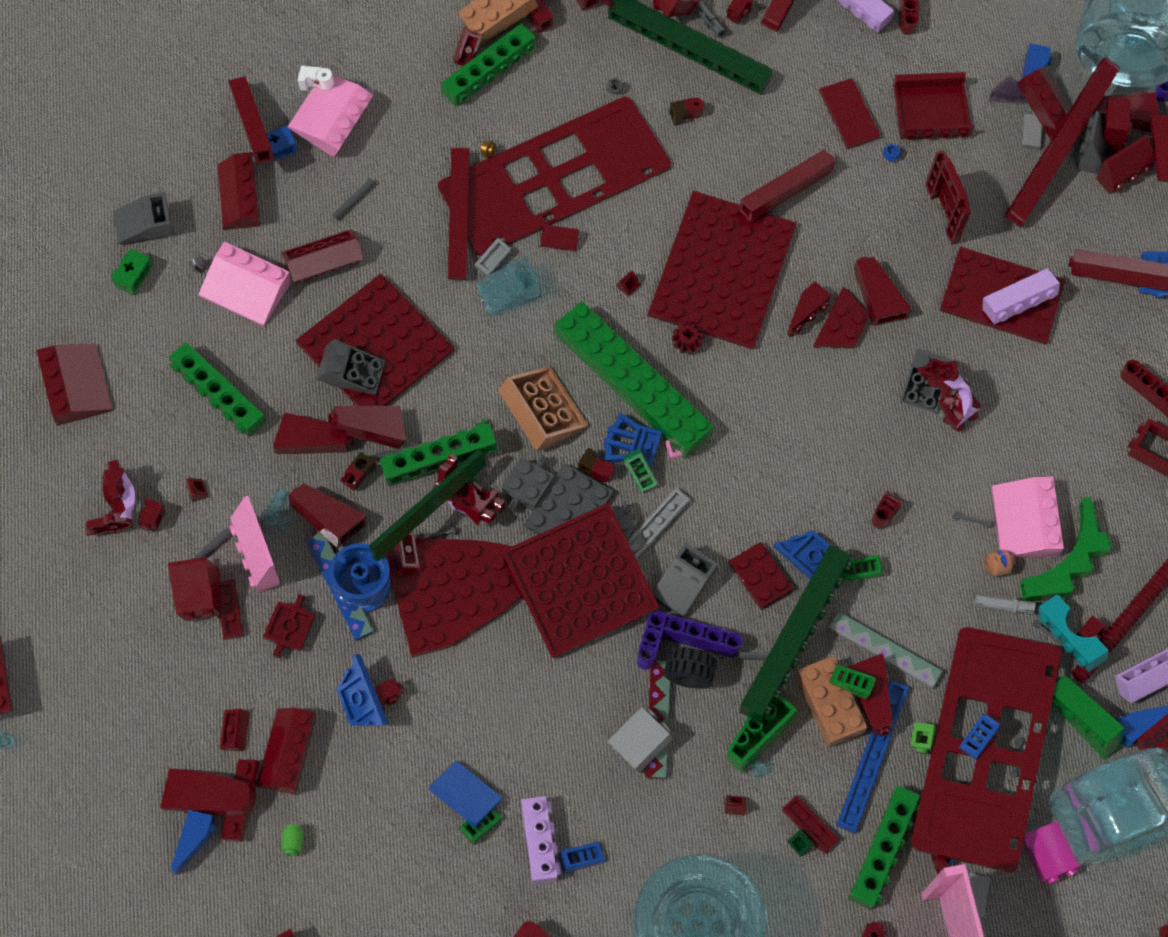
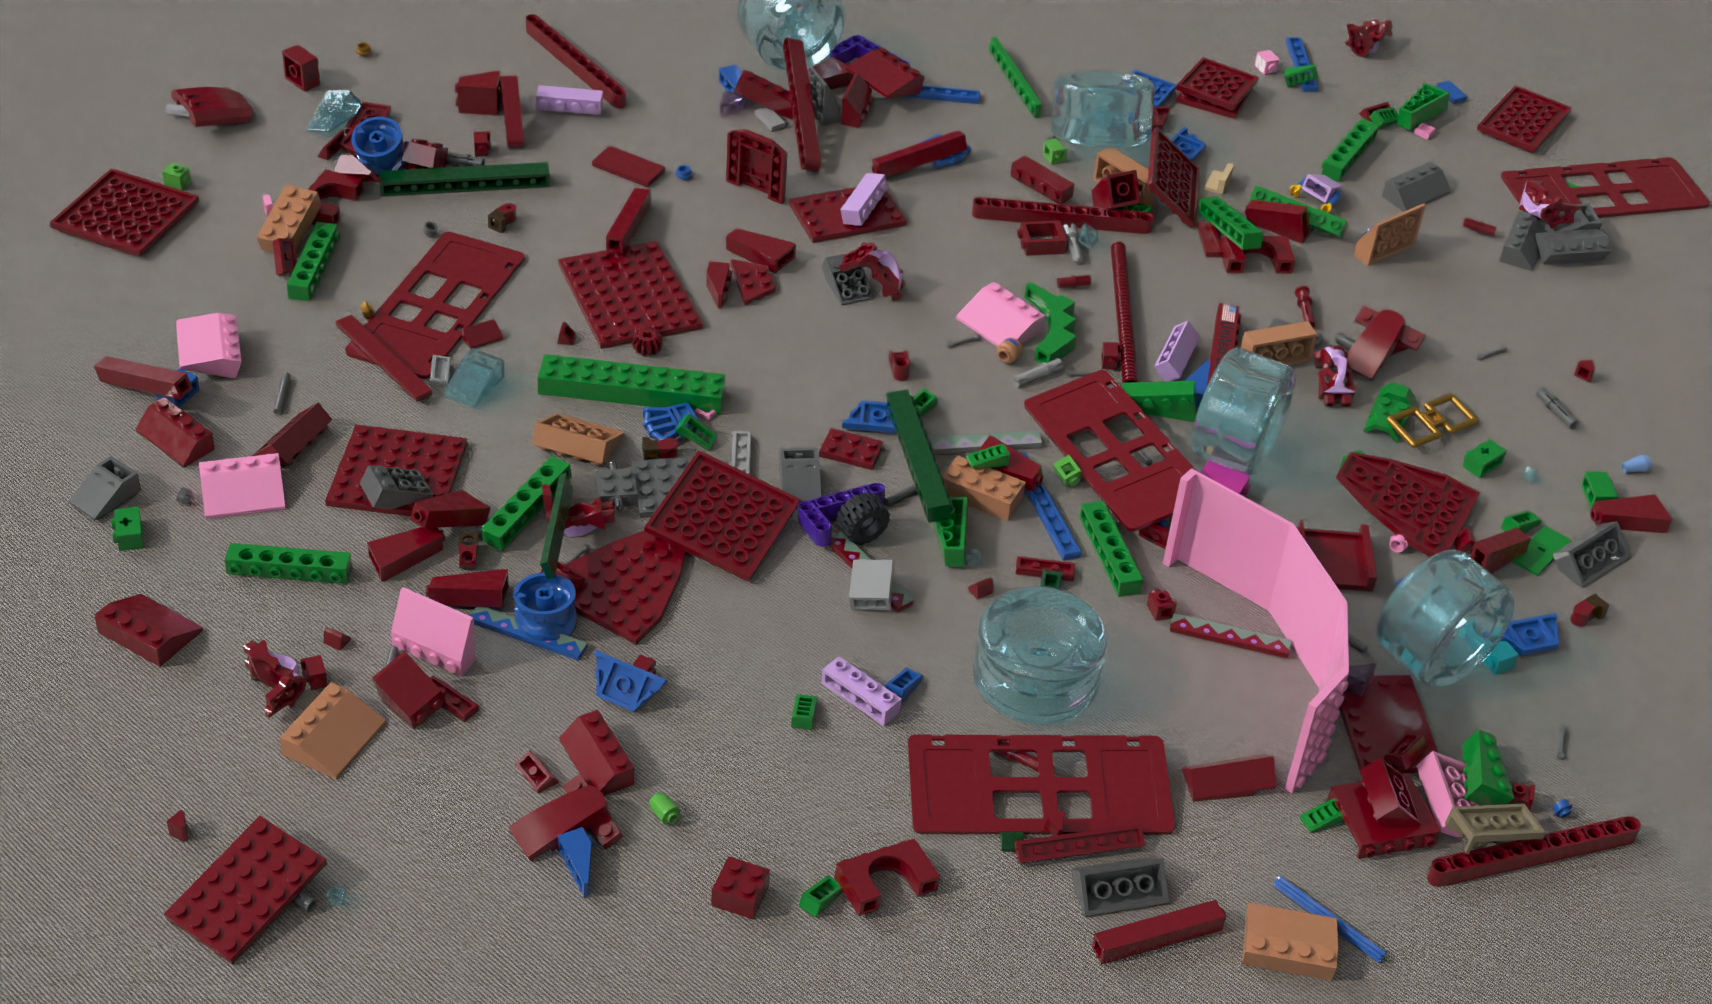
camera: 40 degrees left, 25 degrees down
(119, 582) = (331, 731): none -> nougat slope
(289, 626) = (513, 677): dark red plate -> none
(315, 77) = (176, 322): white leg -> none
(465, 793) = (773, 696): blue tile -> none
(932, 105) = (683, 134): dark red panel -> none
(990, 723) = (1106, 440): blue slope -> none
(1088, 651) = (1122, 359): teal arch -> none
(1117, 123) = (831, 73): dark red slope -> none
(1139, 518) = (1073, 281): none -> dark red axle

